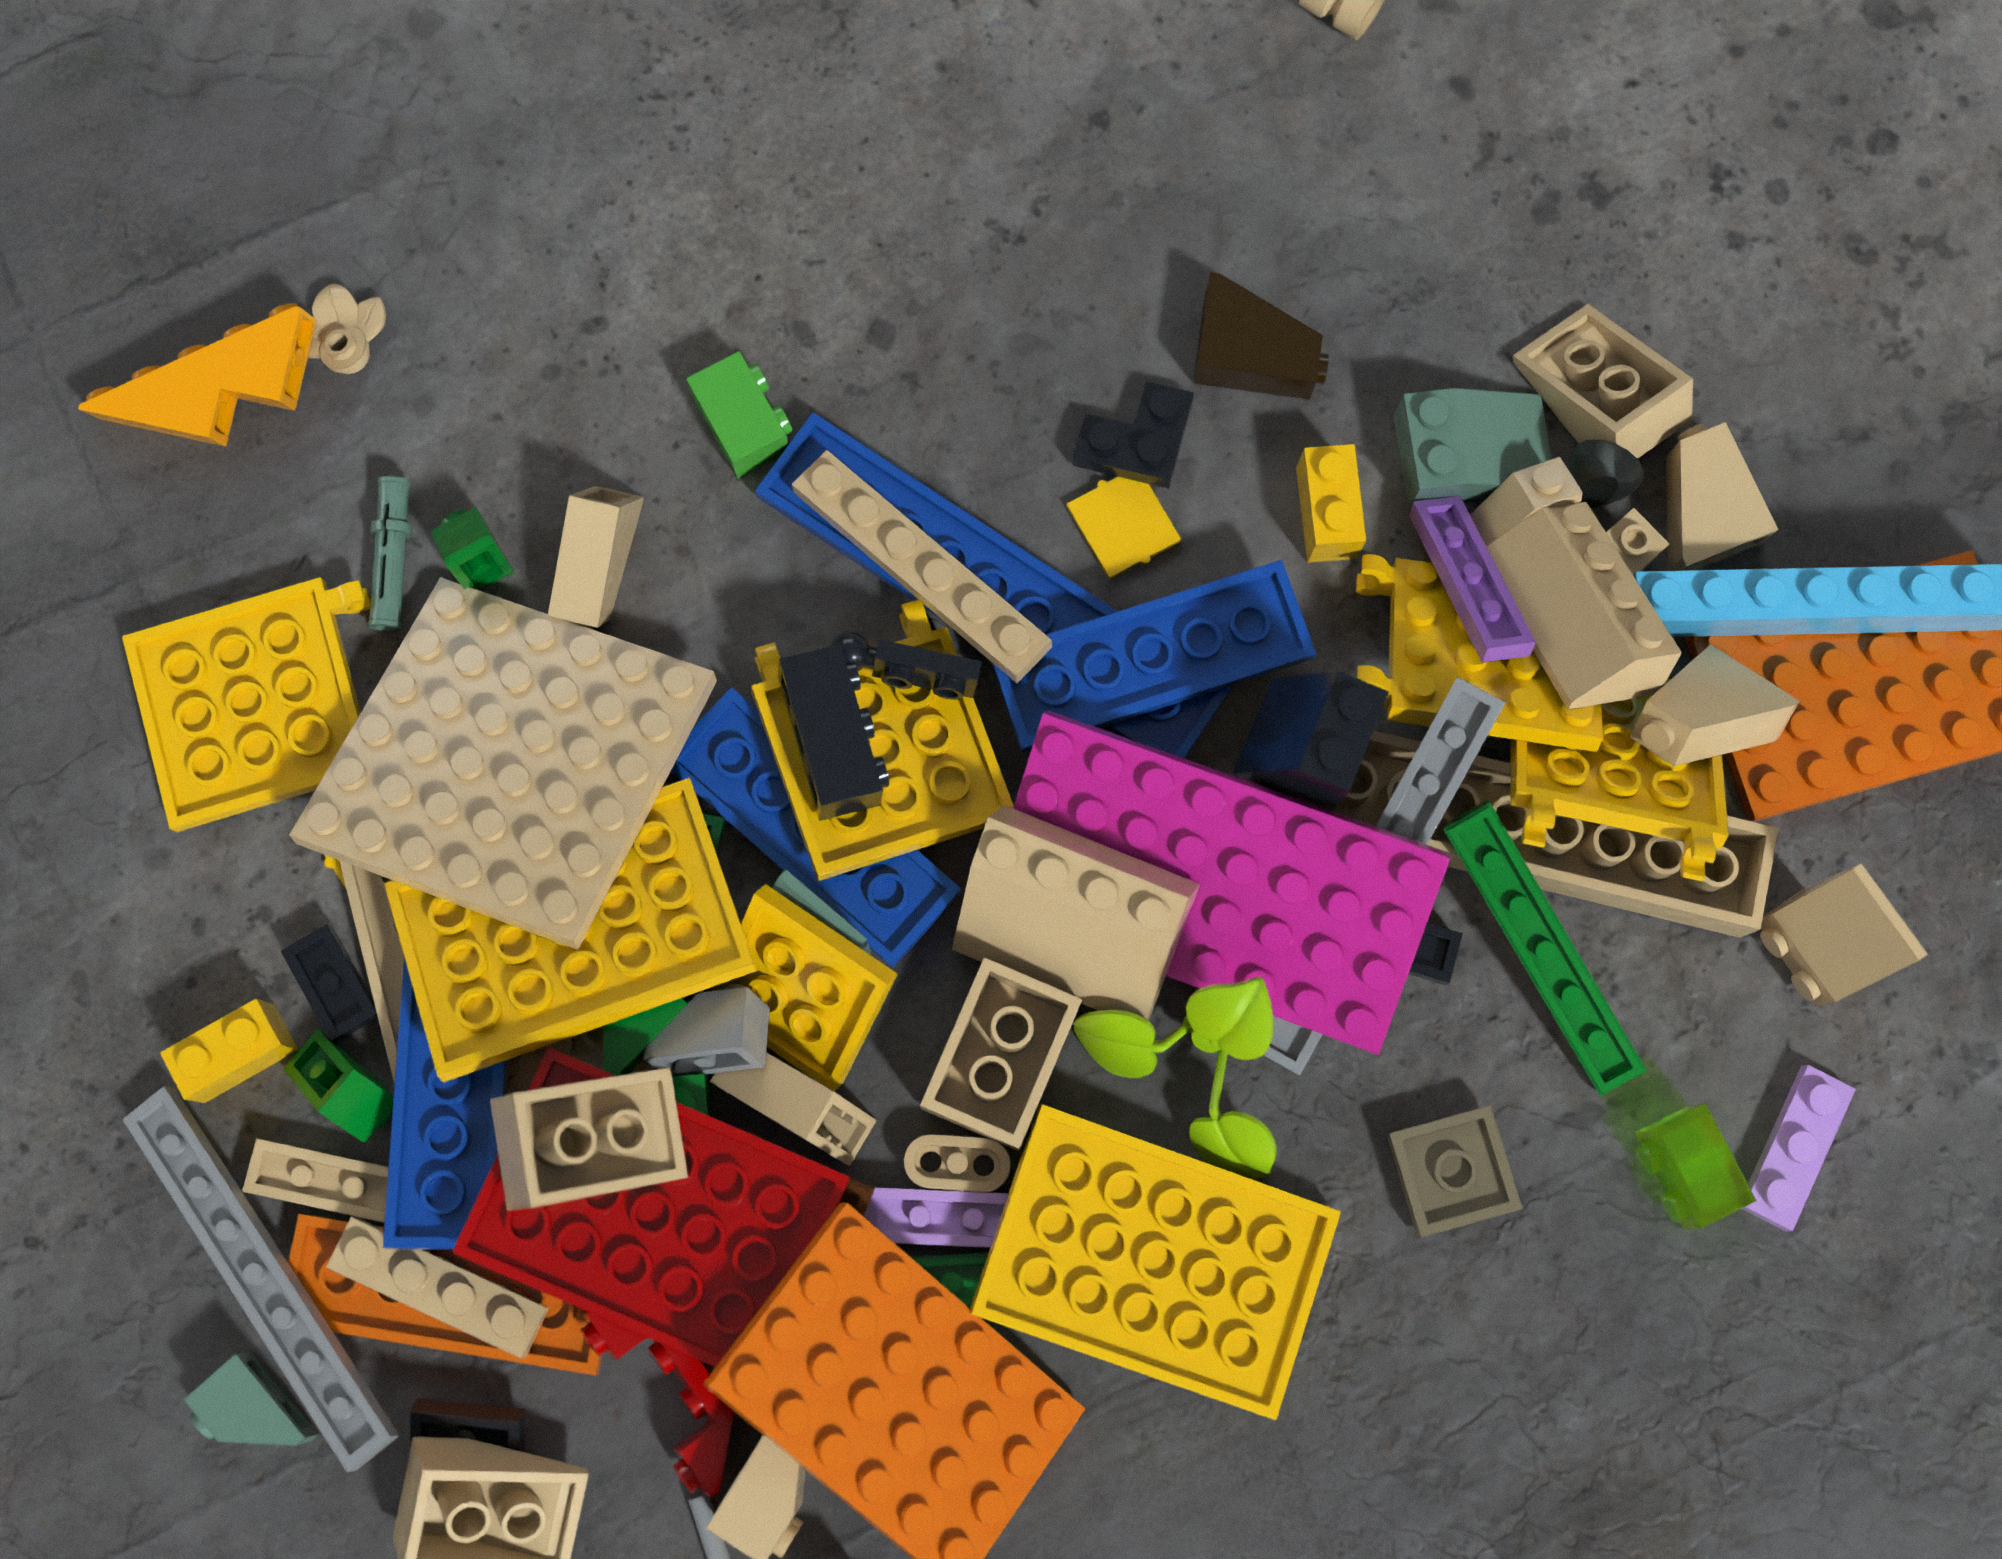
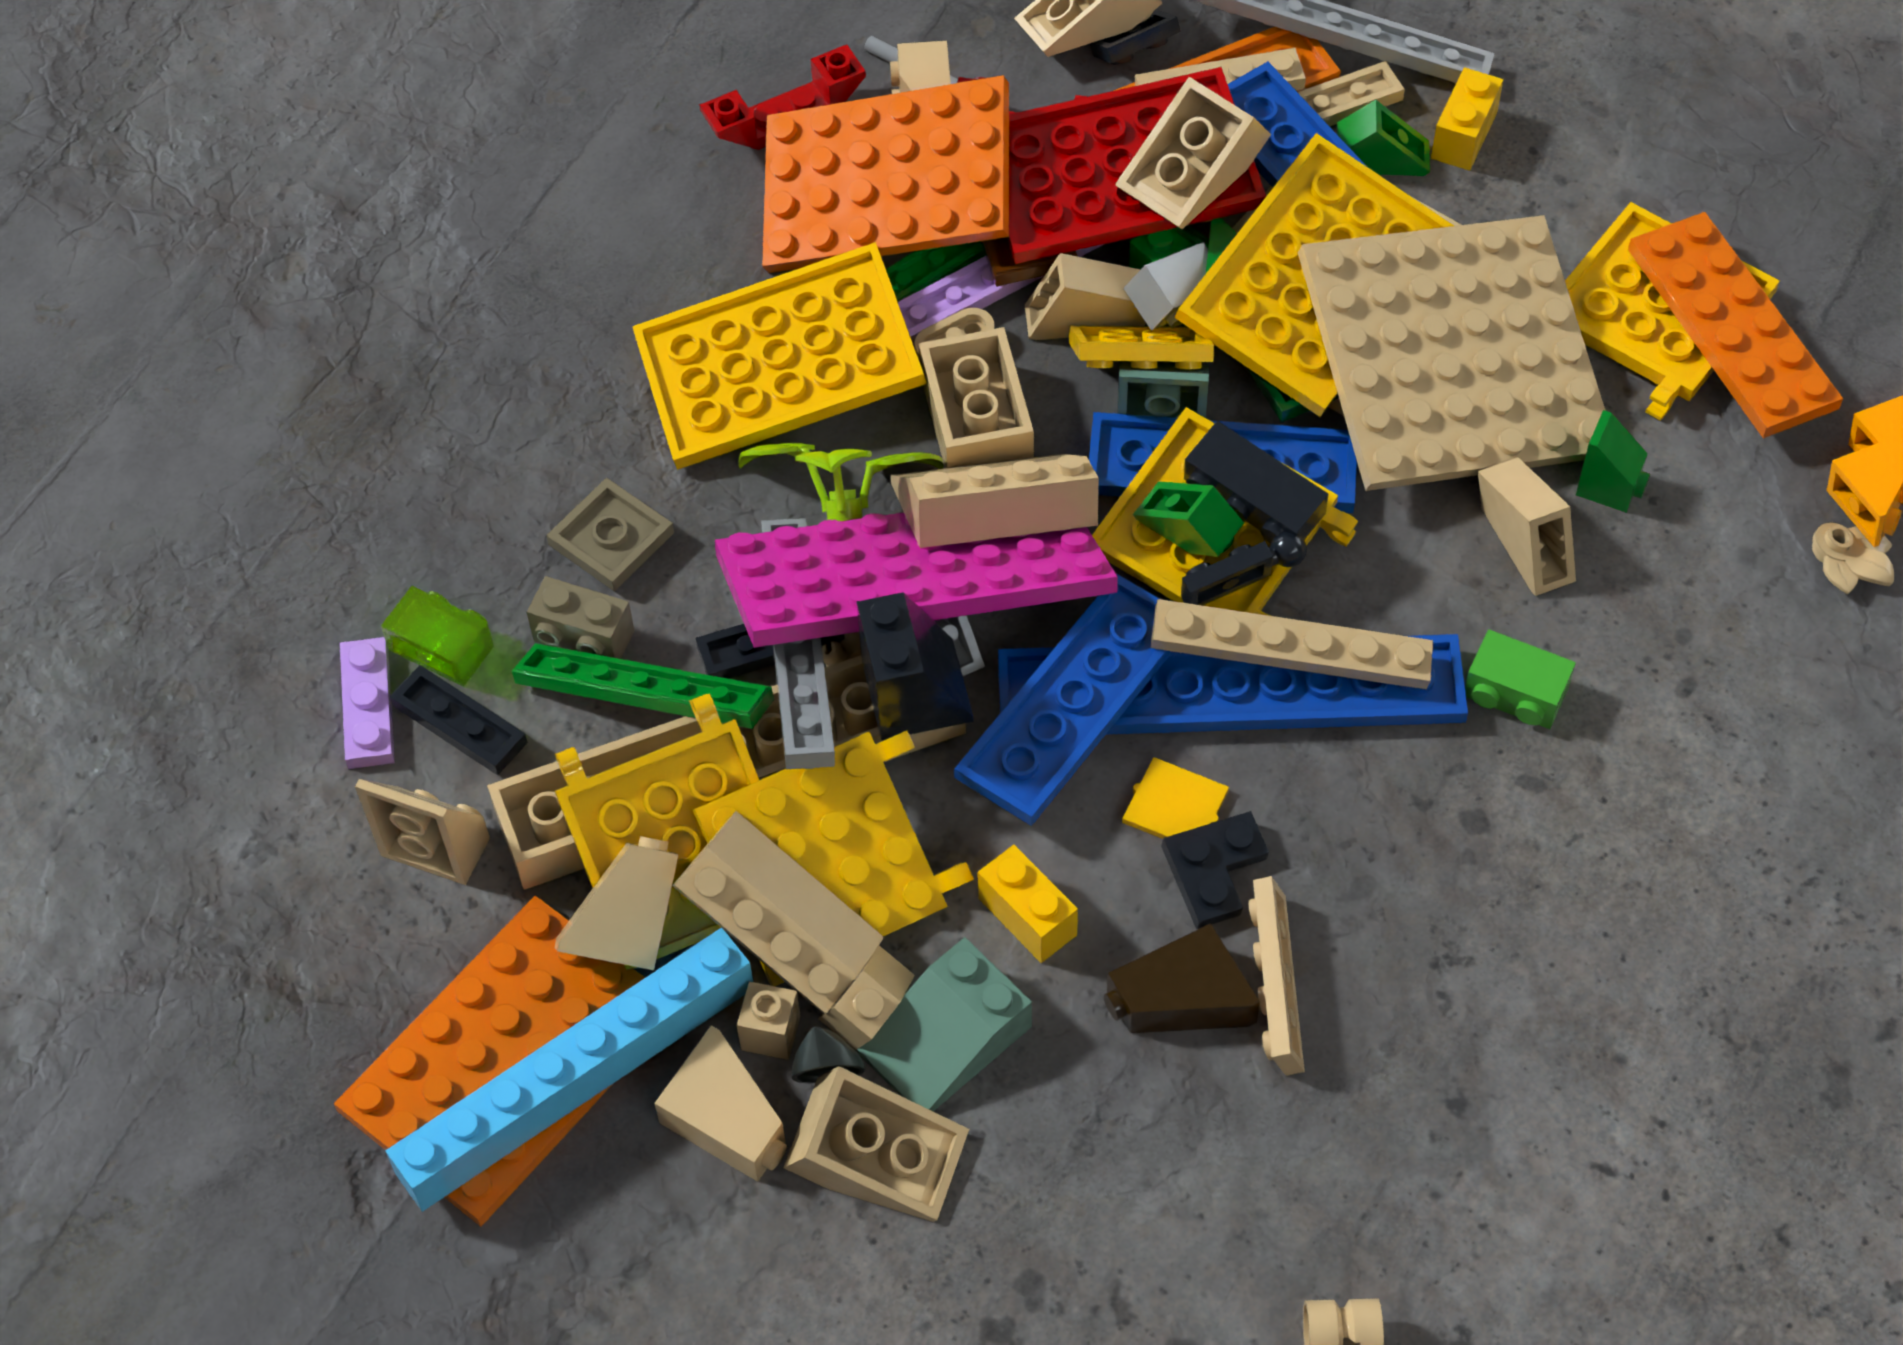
camera: 150 degrees right, 20 degrees down
(214, 616) = (1735, 325): none -> orange plate
(330, 983) = (1447, 191): black plate -> none
(389, 553) = (1678, 453): sand green pin -> none
(916, 749) = (1190, 517): none -> green slope
(1177, 287) = (1275, 959): none -> tan plate
(1471, 579) = (874, 891): medium lavender plate -> none
(1550, 1079) = (580, 619): none -> dark tan brick
(1724, 1059) = (458, 719): none -> black plate

